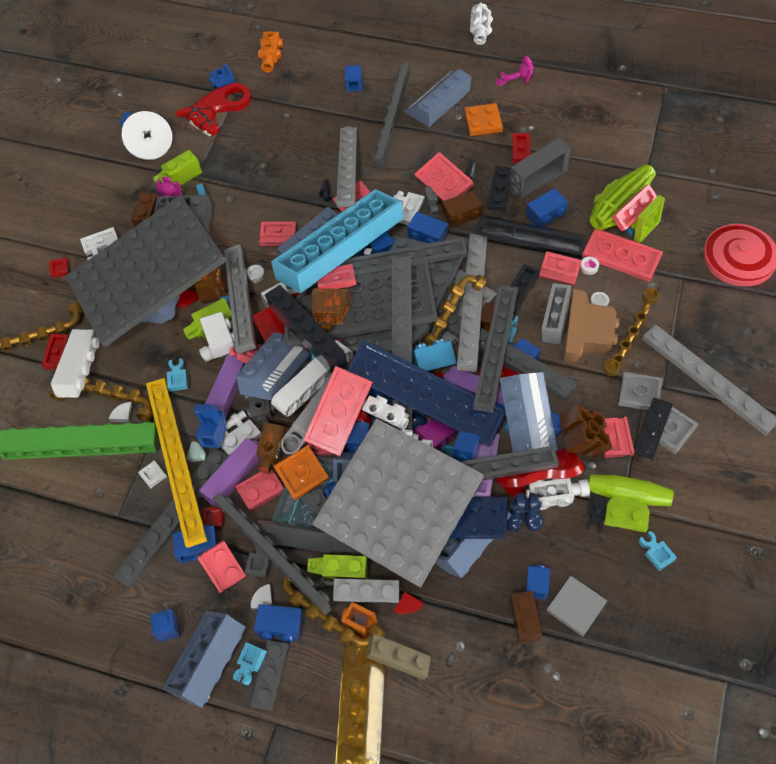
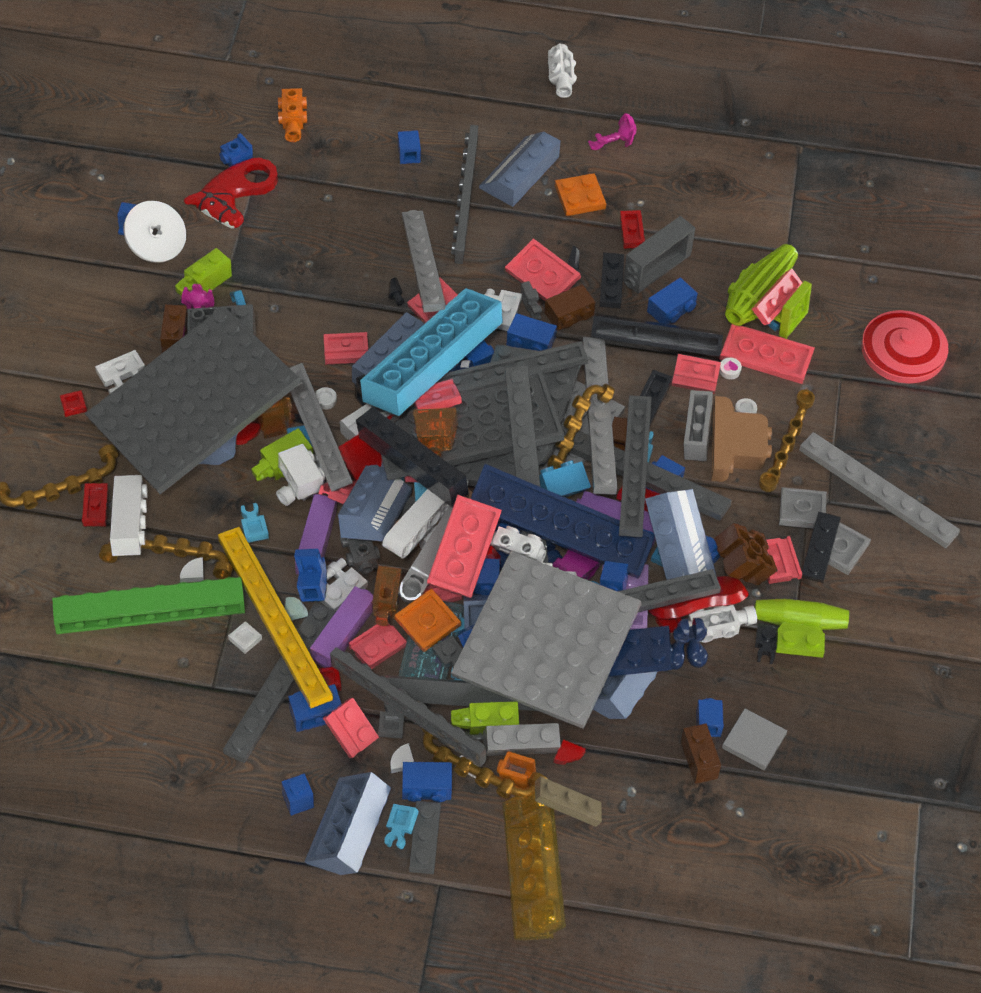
camera: 15 degrees left, 5 degrees down
(658, 554) = (838, 678): medium azure plate -> none

